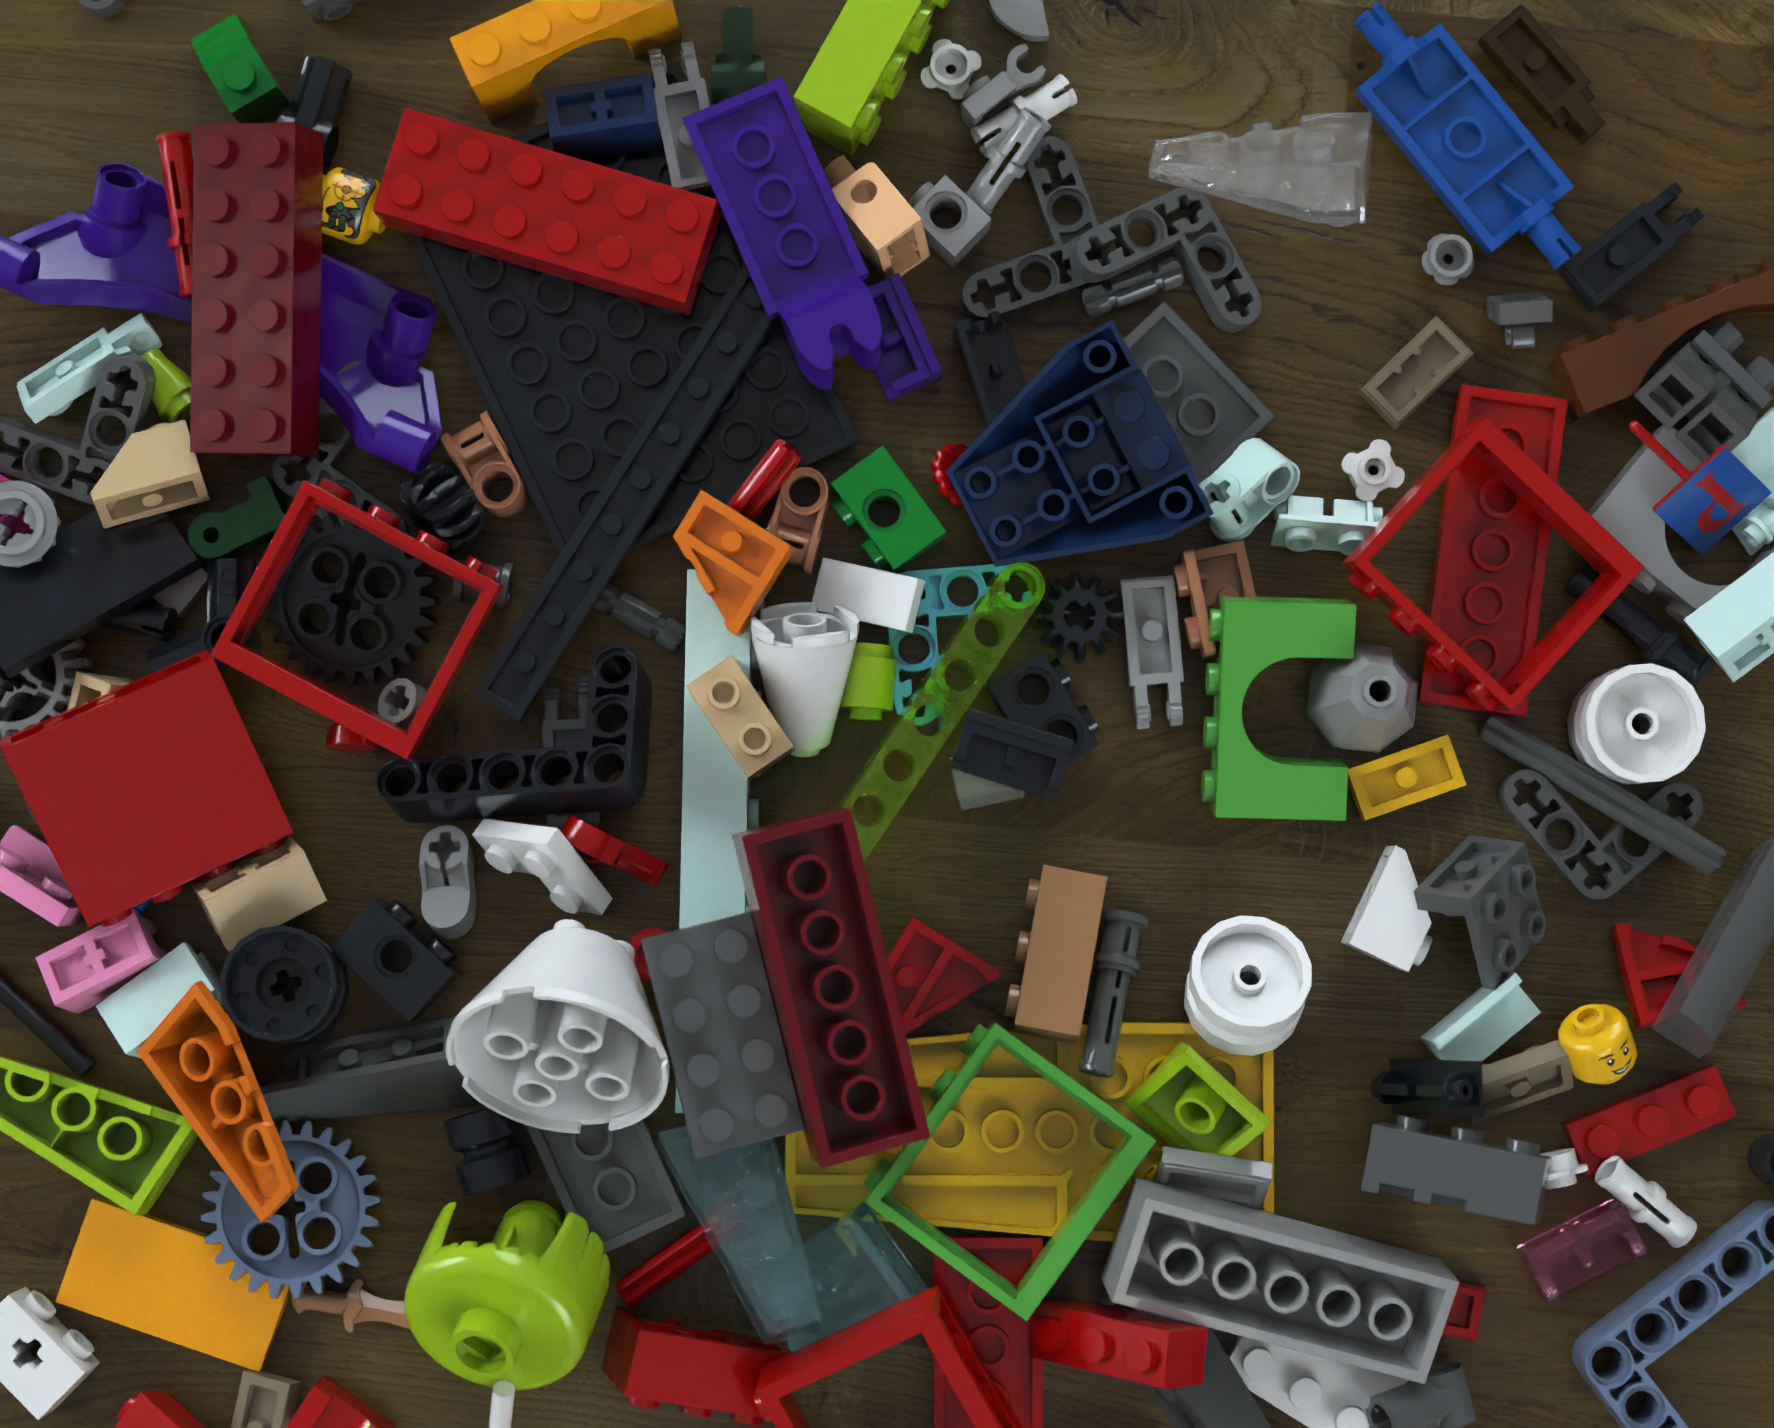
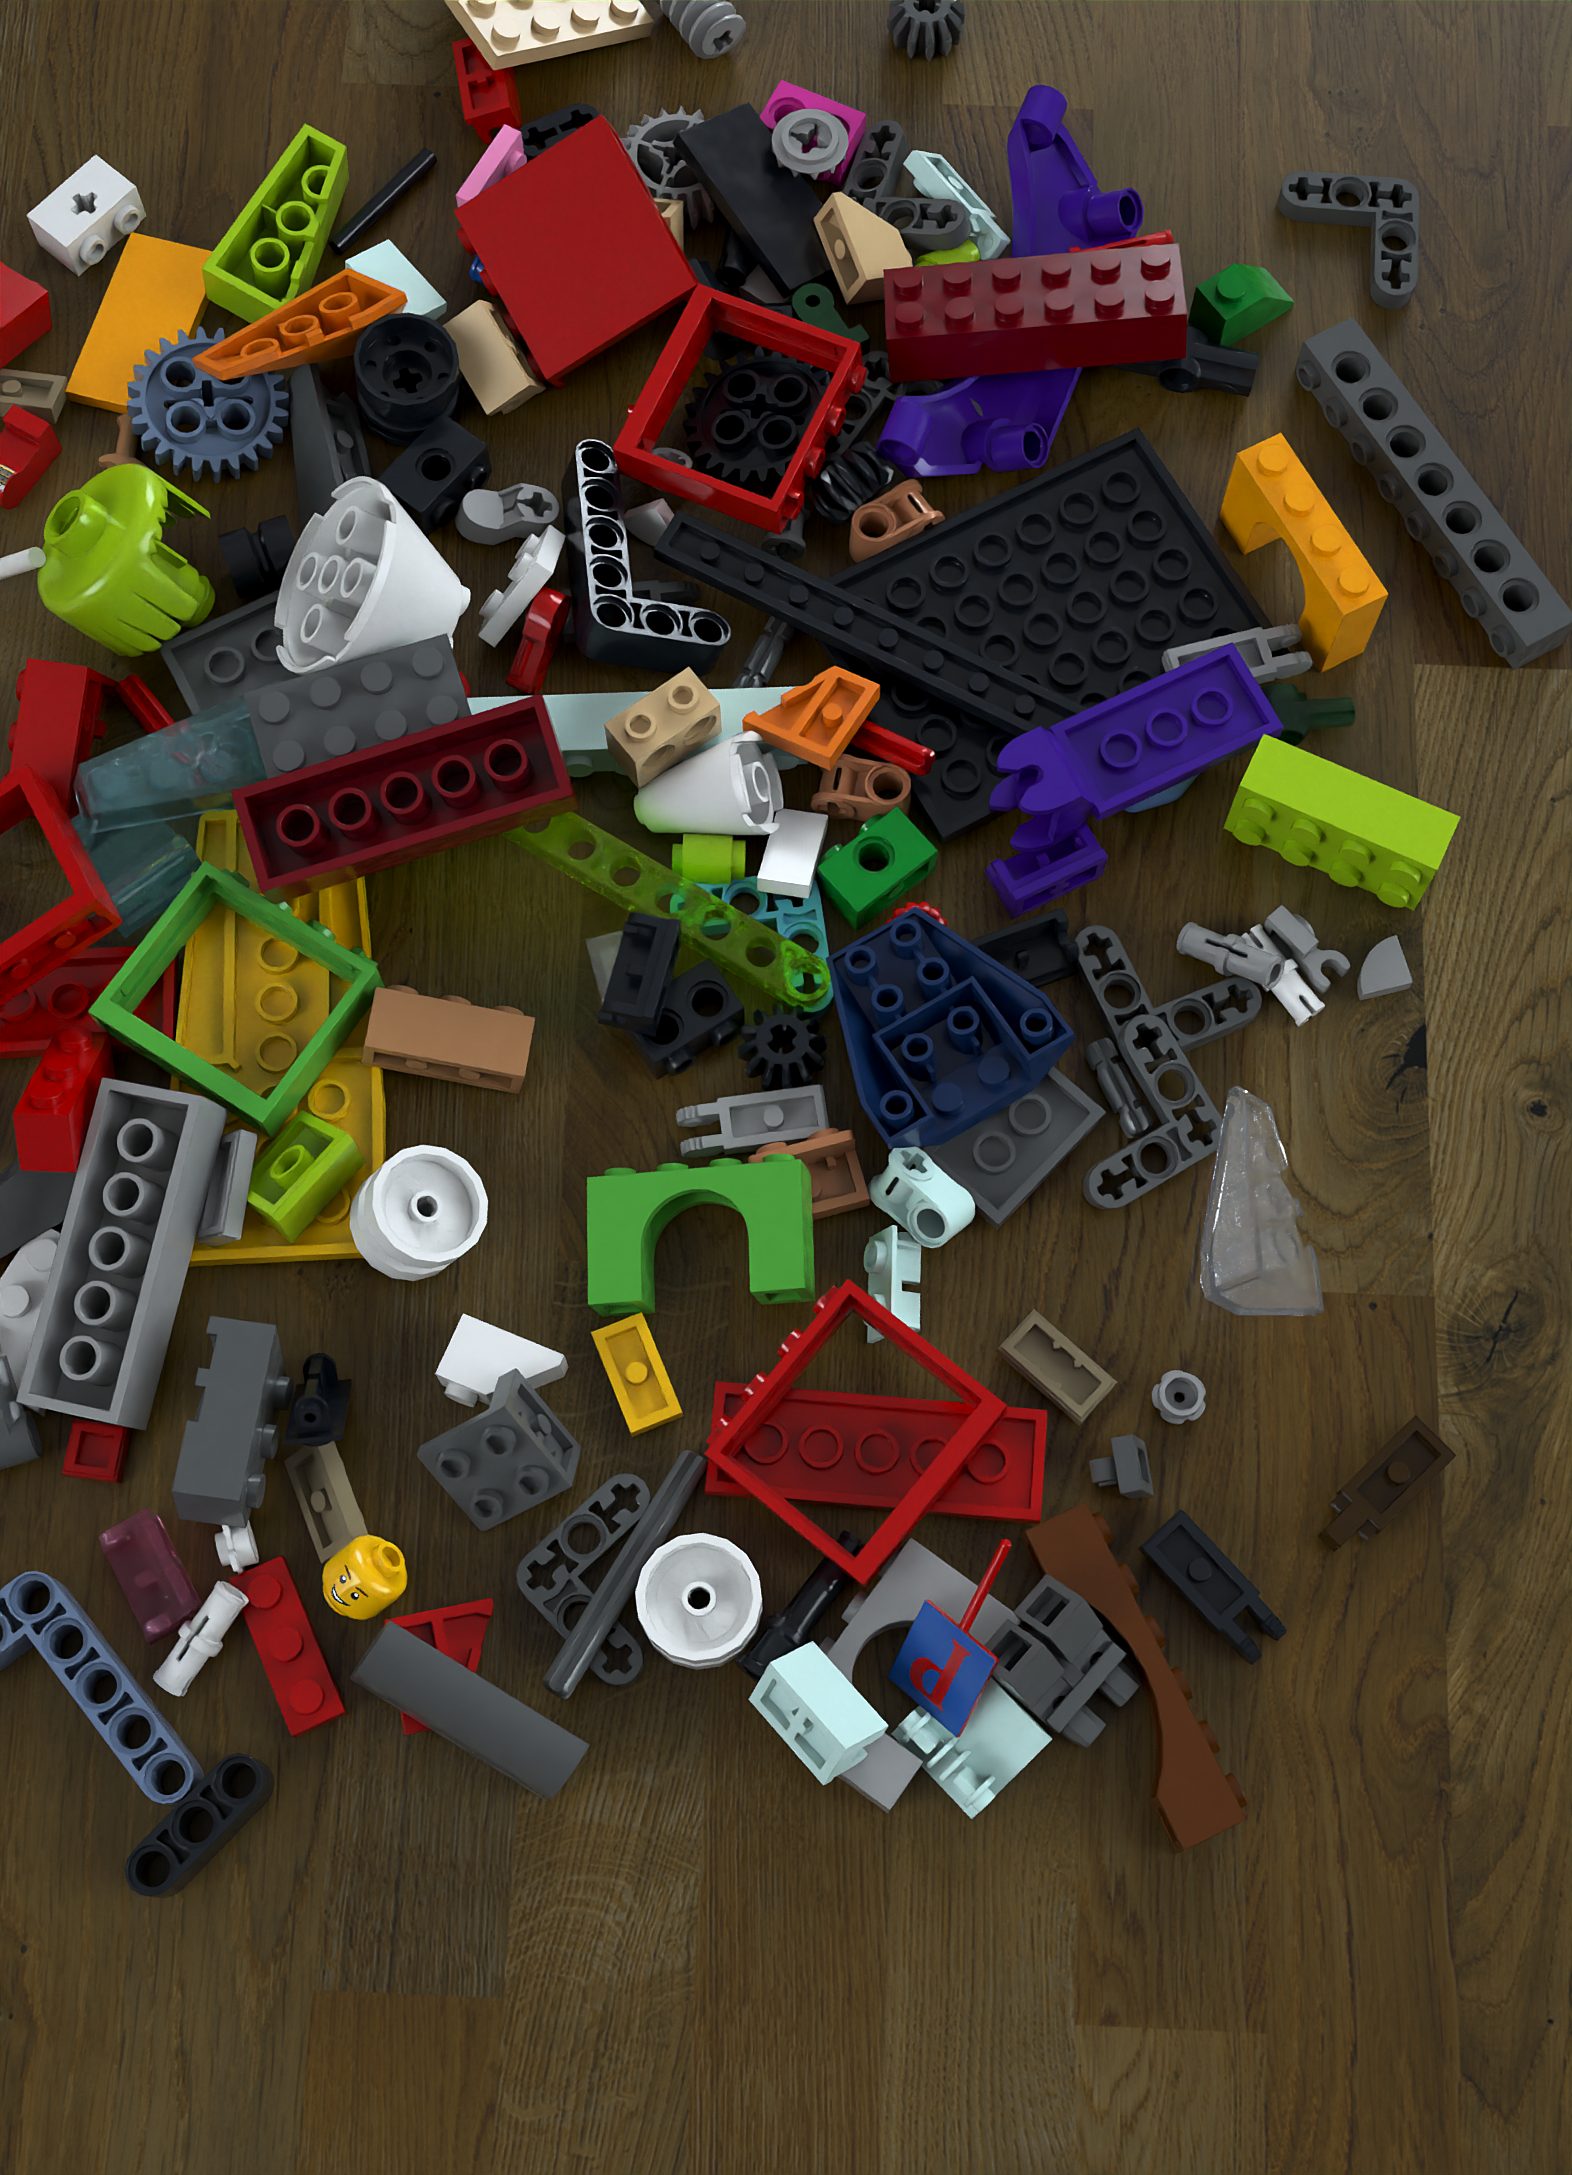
camera: 85 degrees right, 15 degrees down
(99, 962) = (429, 241): bright pink hinge -> none
(349, 206) = (1125, 396): head -> none
(468, 724) = (649, 521): none -> white tile
(547, 211) = (1132, 546): red brick -> none
(604, 118) = (1227, 584): dark blue hinge -> none
(878, 217) = (1158, 839): light nougat torso -> none
(932, 973) = (424, 925): red wing -> none
(946, 54) = (1328, 897): white plate -> none
(958, 241) = (1162, 928): light grey brick -> none
(1115, 967) = (346, 1077): dark grey pin -> none
(1342, 704) = (717, 1331): light grey cone -> none
(1369, 485) = (953, 1314): white plate -> none
(1463, 138) = (1306, 1404): blue plate -> none
(1482, 1022) = (386, 1465): light aqua panel -> none

